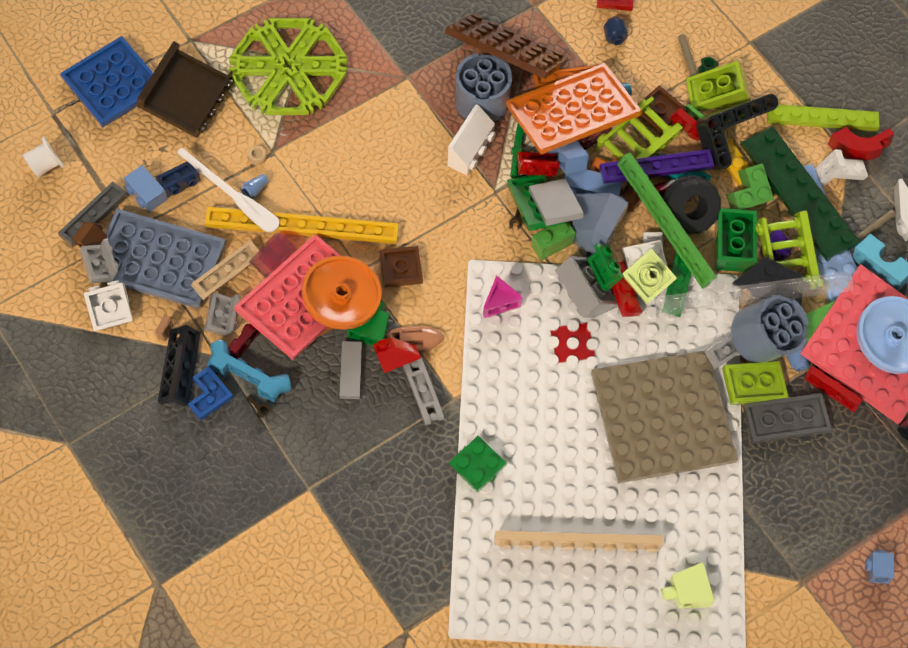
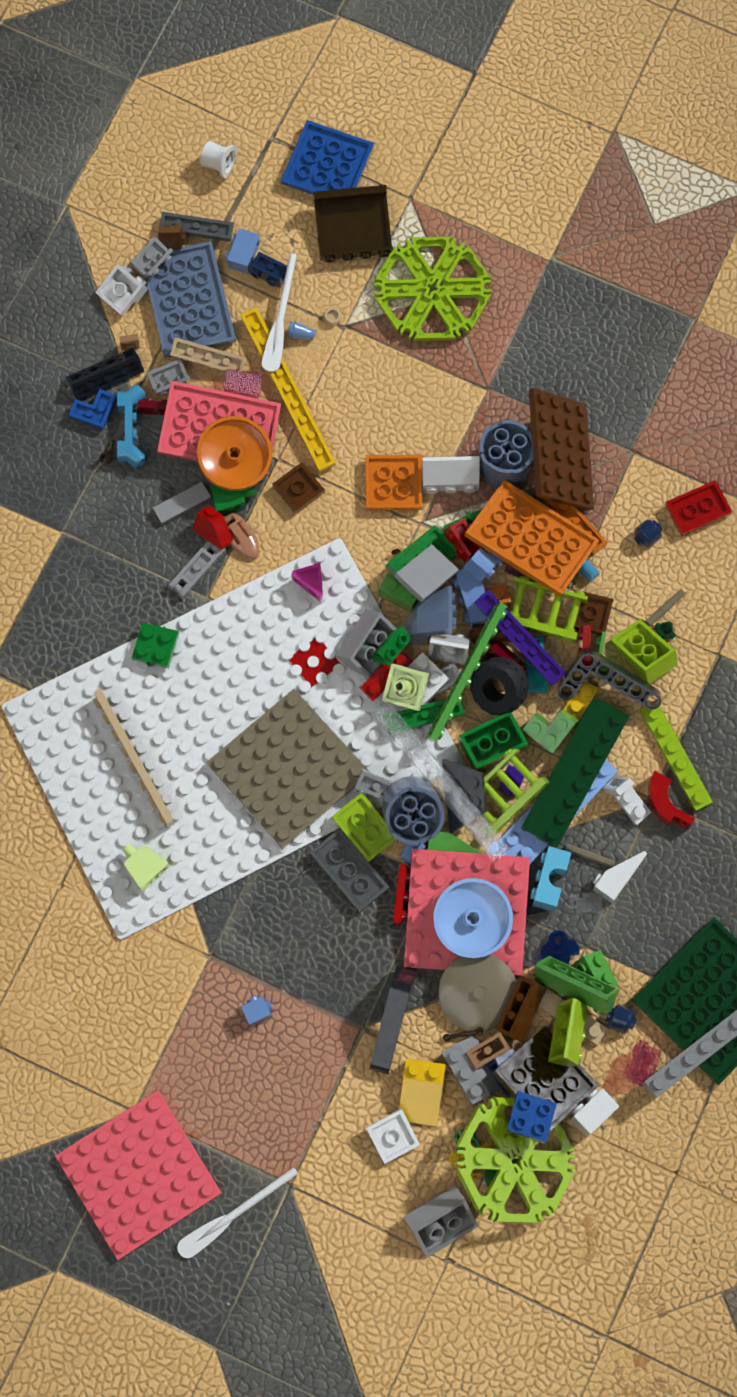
camera: 60 degrees right, 10 degrees up
(446, 190) = (393, 482): none -> orange plate
(632, 224) = (449, 648): none -> white slope

